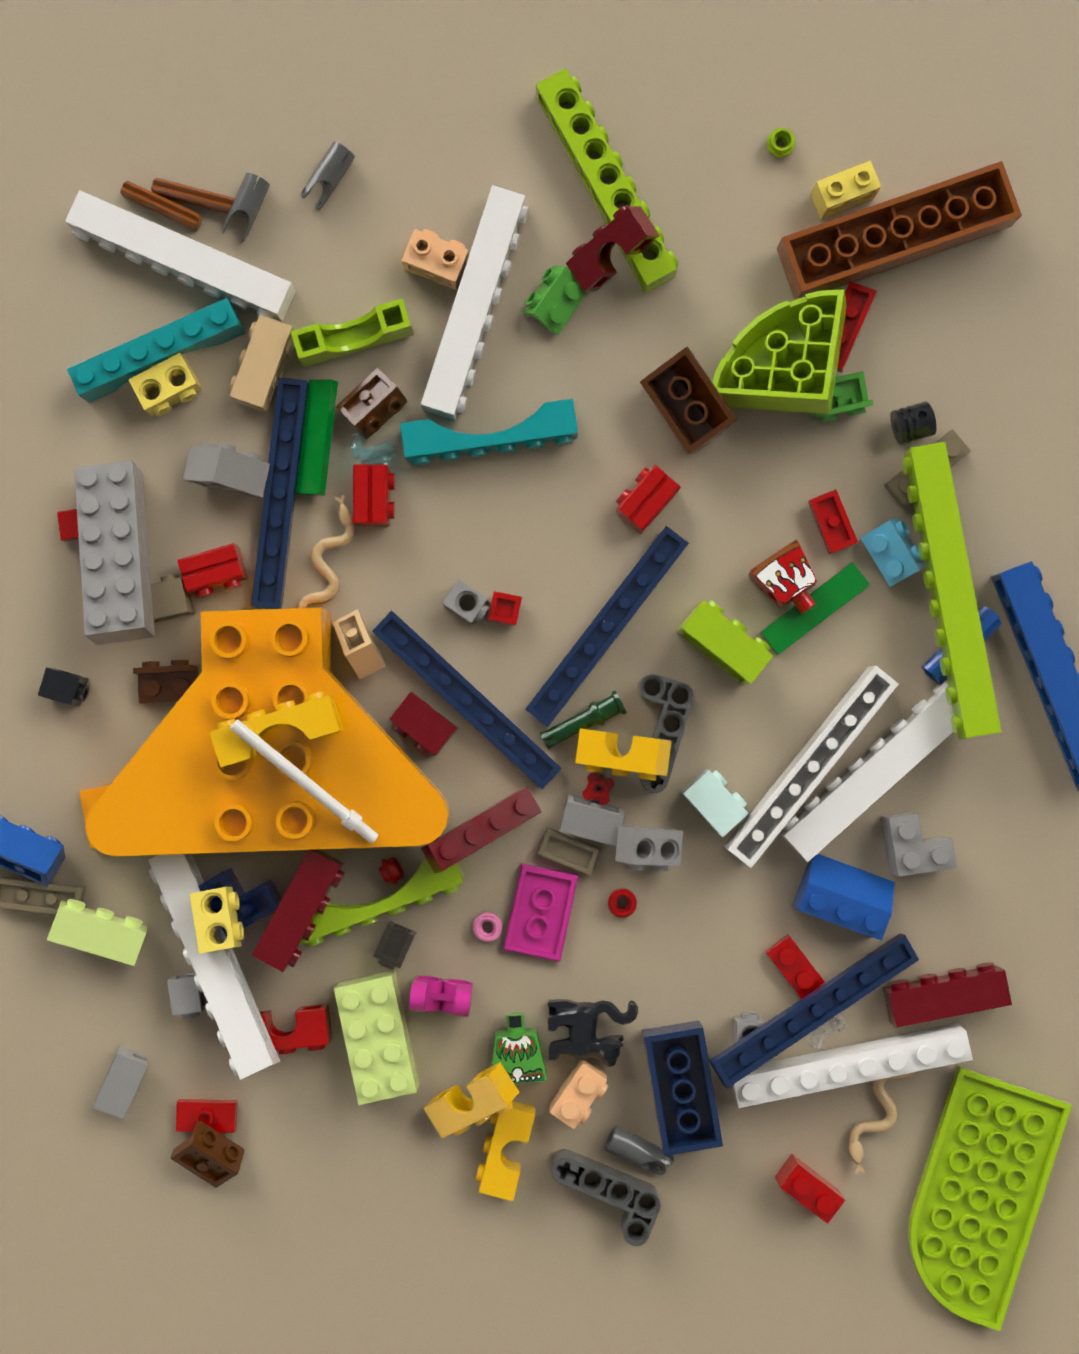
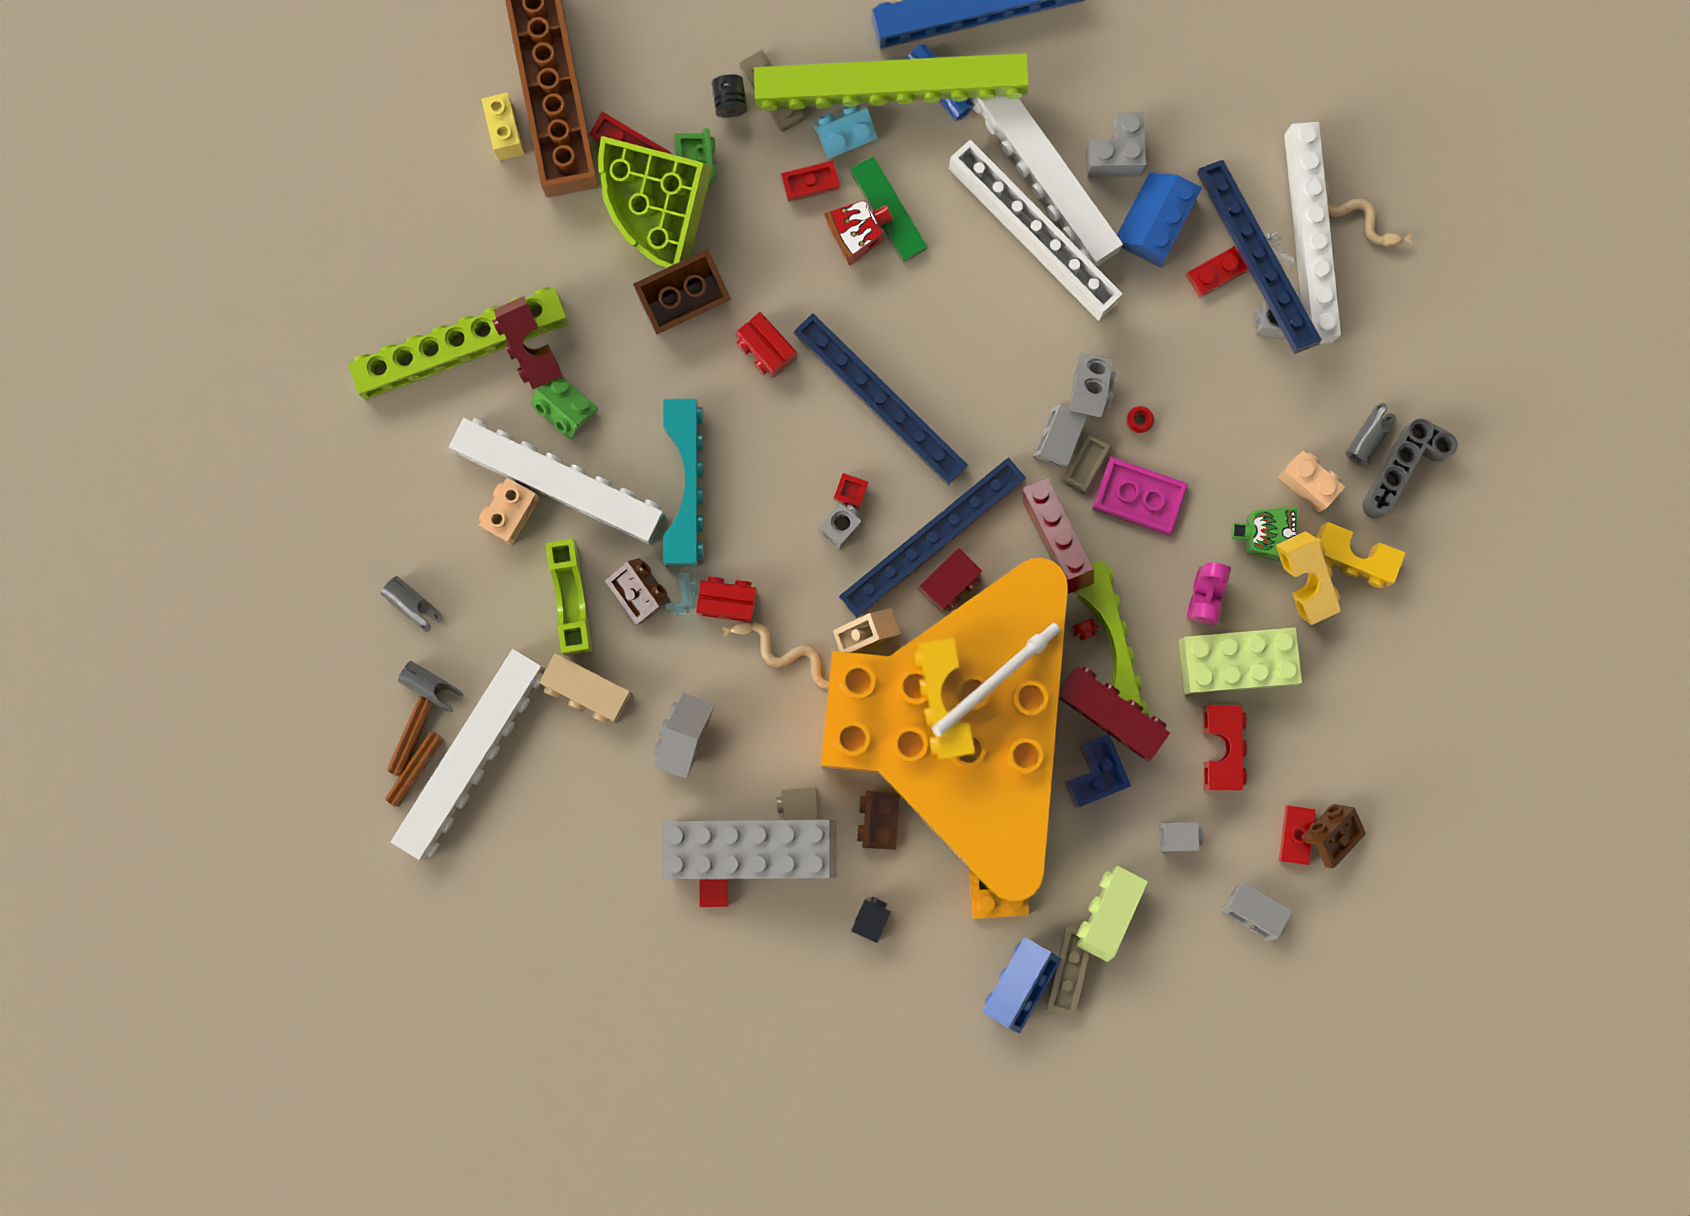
camera: 85 degrees left, 5 degrees down
(163, 377) = (584, 788): light yellow brick -> none
(196, 331) = (556, 790): teal arch -> none
(207, 921) = (1114, 795): light yellow brick -> none
(213, 570) = (777, 761): red brick -> none
(216, 971) = (1154, 802): white brick -> none
(279, 494) = (712, 688): dark blue plate -> none
(316, 437) = (663, 646): green tile -> none
(394, 945) = (1156, 634): clear smoke brick -> none
(483, 935) = (1154, 541): bright pink plate -> none
(582, 1024) = (1253, 470): black animal -> none
(596, 714) = (961, 419): dark green pin -> none
(606, 785) = (1024, 431): red plate -> none
(646, 755) = (997, 420): yellow arch -> none
(668, 708) = (988, 363): dark grey beam -> none
(682, 1088) = (1317, 385): dark blue brick -> none
(715, 802) = (1057, 321): light aqua brick -> none
(725, 642) = (911, 290): lime brick -> none
(784, 135) = (444, 172): lime plate -> none
(809, 1188) = (1420, 284): red brick -> none
(947, 995) = (1257, 139): dark red brick -> none
(983, 1192) = (1439, 133): lime plate -> none

